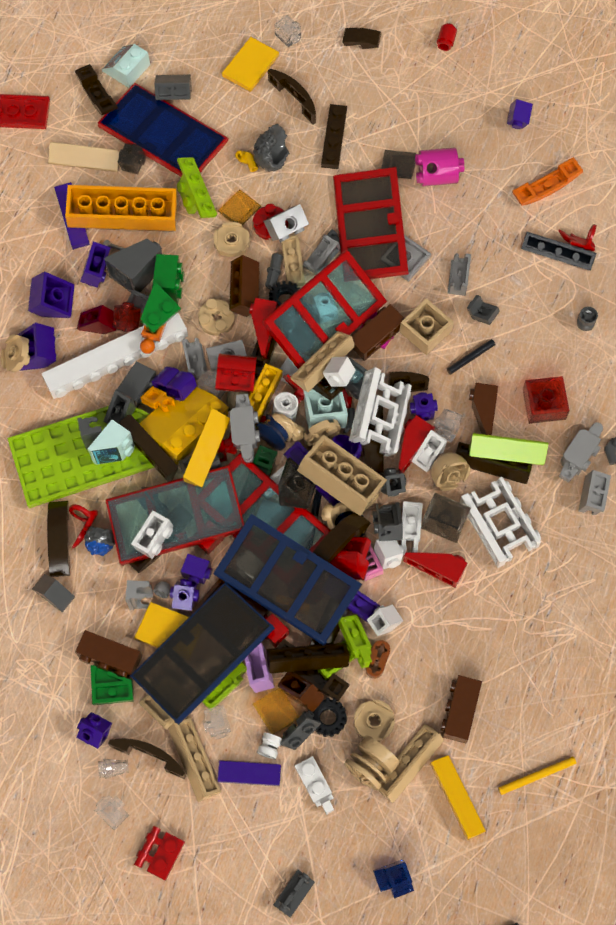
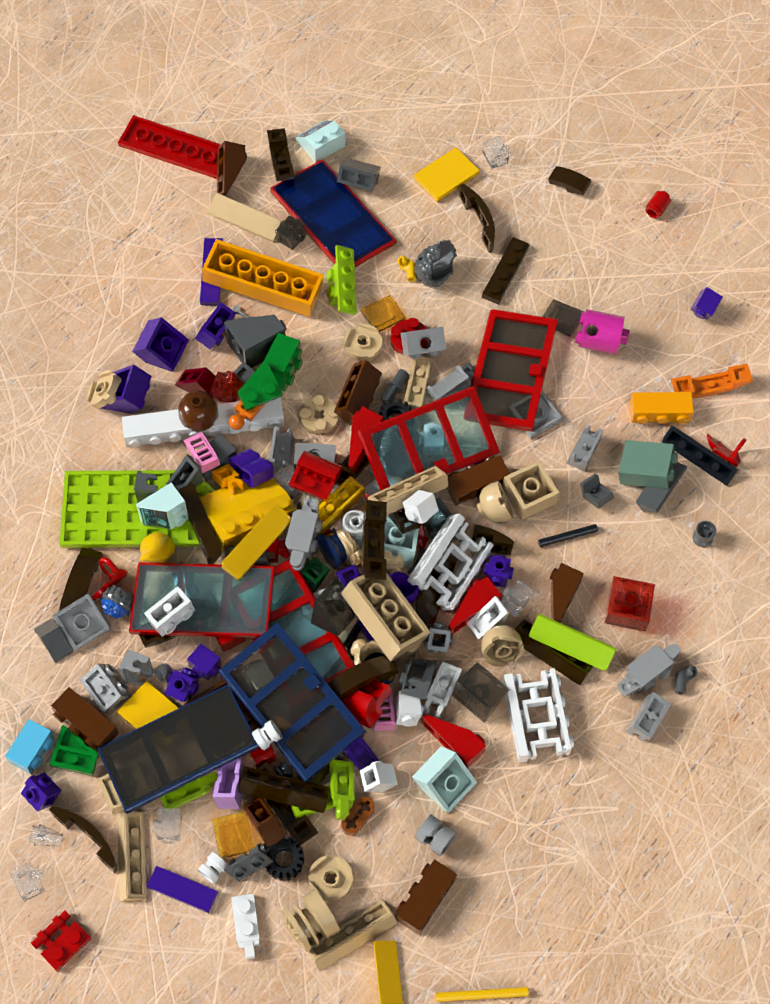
camera: 15 degrees right, 5 degrees down
(52, 109) = (229, 163): none -> reddish brown slope
(69, 694) = (30, 747): none -> medium azure brick
(73, 568) = (81, 622): none -> light grey tile
(109, 346) = (198, 411): none -> reddish brown cylinder
(116, 481) = (157, 548): none -> yellow hat
(116, 619) = (105, 686): none -> light grey bracket
(135, 392) = (207, 464): none -> bright pink slope
(274, 618) = (267, 735): none -> white wheel
(299, 641) = (283, 770): none -> black bush
(309, 414) = (373, 539): none -> dark brown slope
(399, 348) = (494, 503): none -> tan cylinder
(441, 602) = (444, 779): none -> light aqua slope
(451, 653) = (435, 835): none -> light grey wheel
(512, 218) = (661, 407): none -> light orange brick
(519, 272) = (647, 464): none -> sand green brick
(536, 288) = (653, 498): none -> dark grey slope

